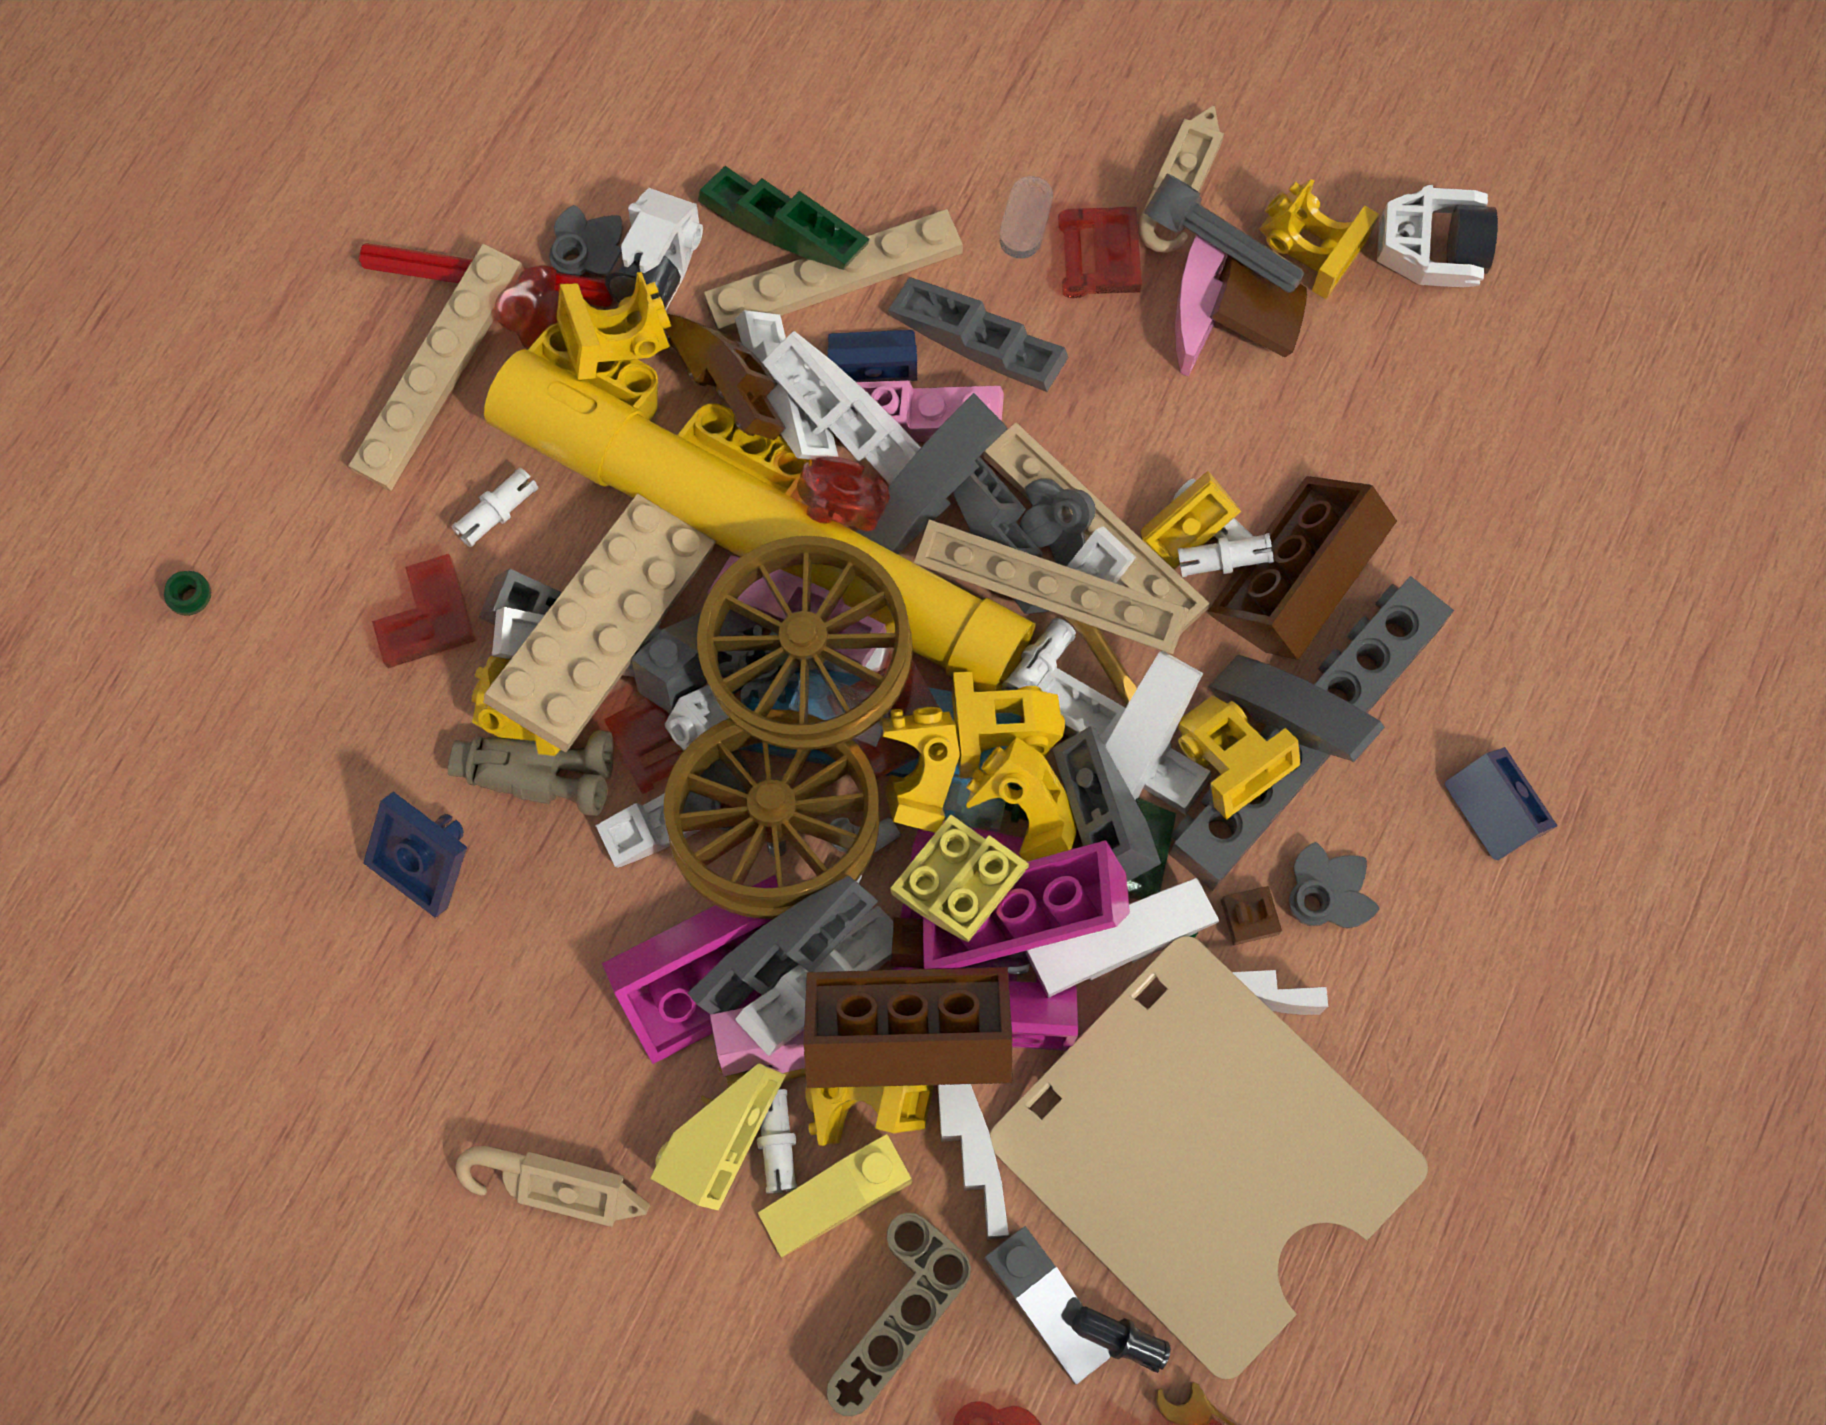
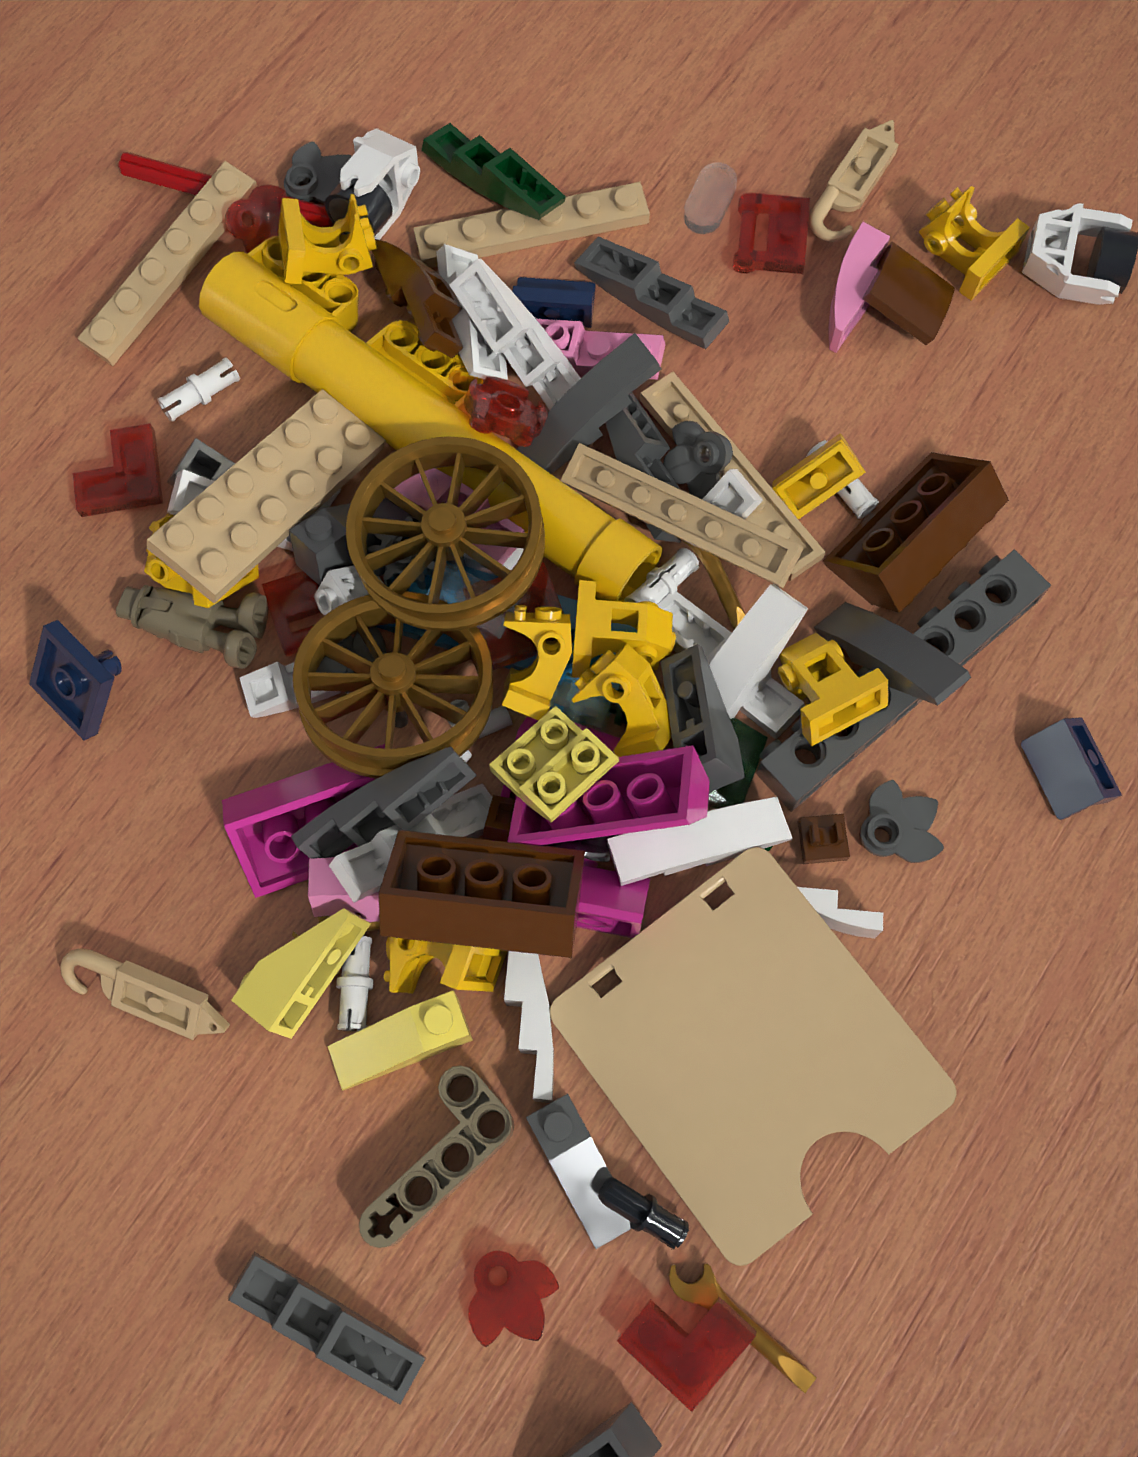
camera: 10 degrees right, 0 degrees up
(1179, 207) = (848, 200): dark grey axle -> none
(1225, 555) = (846, 510): white pin -> none

